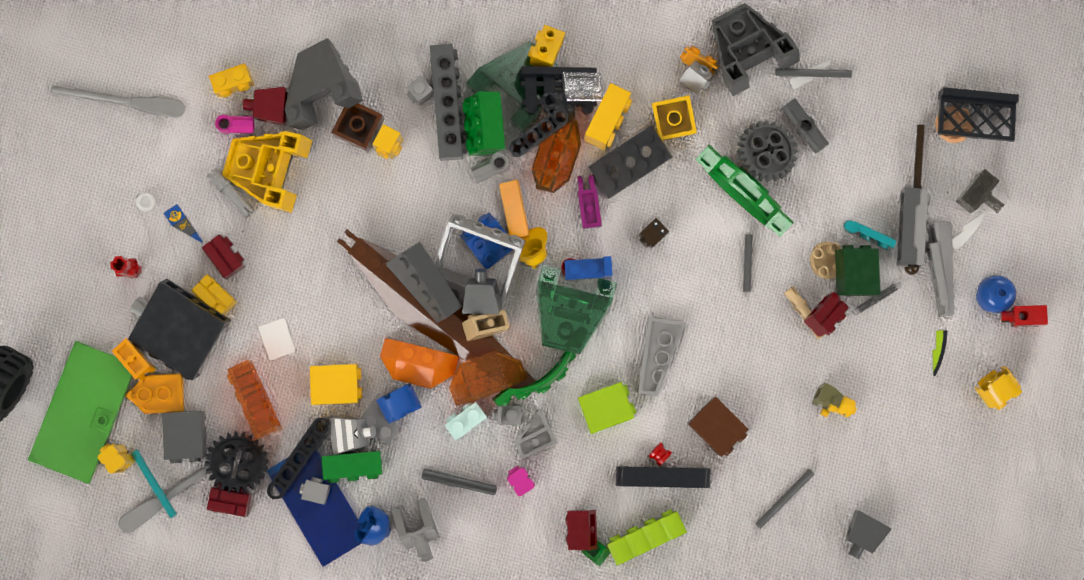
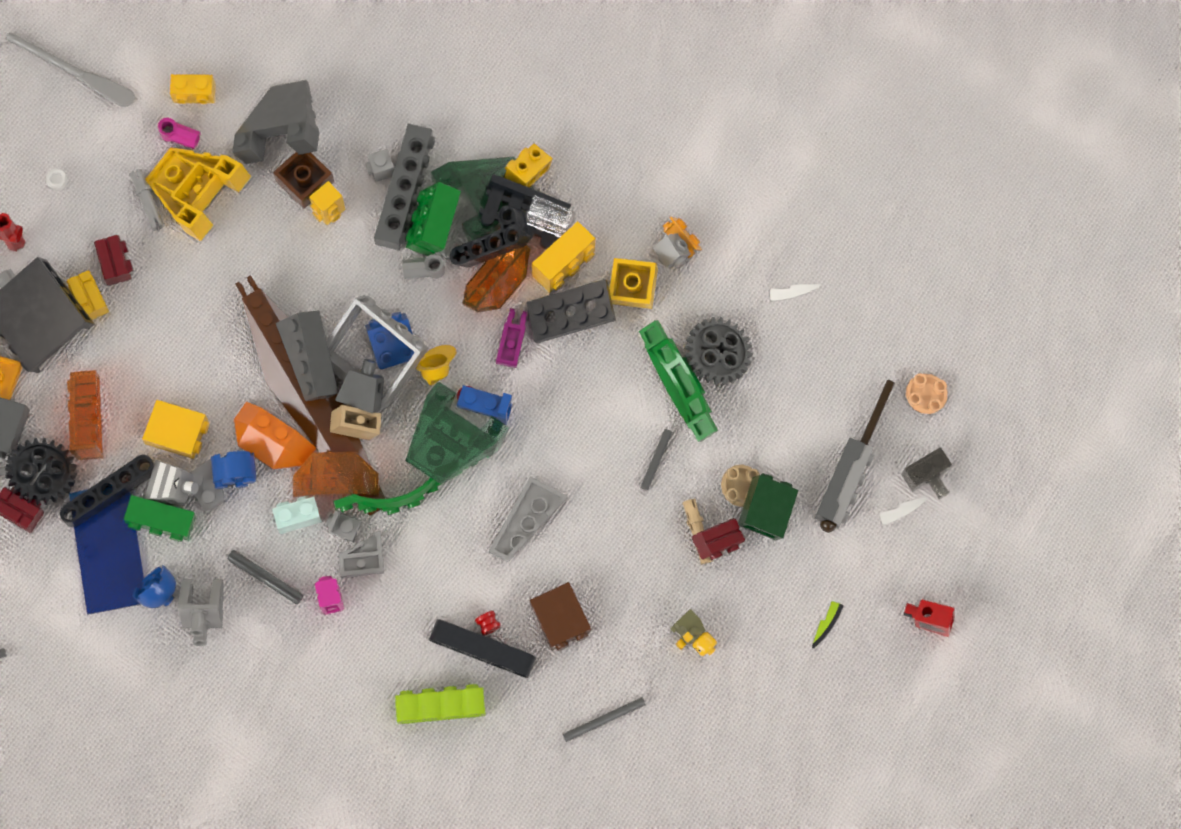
camera: 15 degrees right, 10 degrees down
(180, 222) = (83, 210): sticker -> none
(268, 105) = (220, 126): dark red torso -> none
(276, 339) = (134, 363): white sticker -> none
(315, 490) = (110, 530): light grey brick -> none
(514, 208) = (432, 316): light orange tile -> none
(581, 529) = (374, 671): dark red brick -> none
(597, 555) = (382, 702): green slope -> none
(607, 407) = (450, 554): lime brick -> none
(653, 234) = (567, 393): dark brown brick -> none
(746, 41) = (736, 234): dark grey wedge -> none
(812, 136) = (764, 327): dark grey piece -> none
(813, 73) = (797, 290): dark grey bar -> none
(865, 533) = (676, 786): dark grey torso -> none
(867, 234) = (794, 473): teal hinge -> none
(879, 300) = (795, 540): dark grey piece -> none
(941, 267) = (861, 536): light grey wedge -> none
(974, 98) = (964, 376): black fence -> none
(996, 294) = (909, 584): blue cylinder -> none
(998, 388) = (874, 681): yellow brick -> none

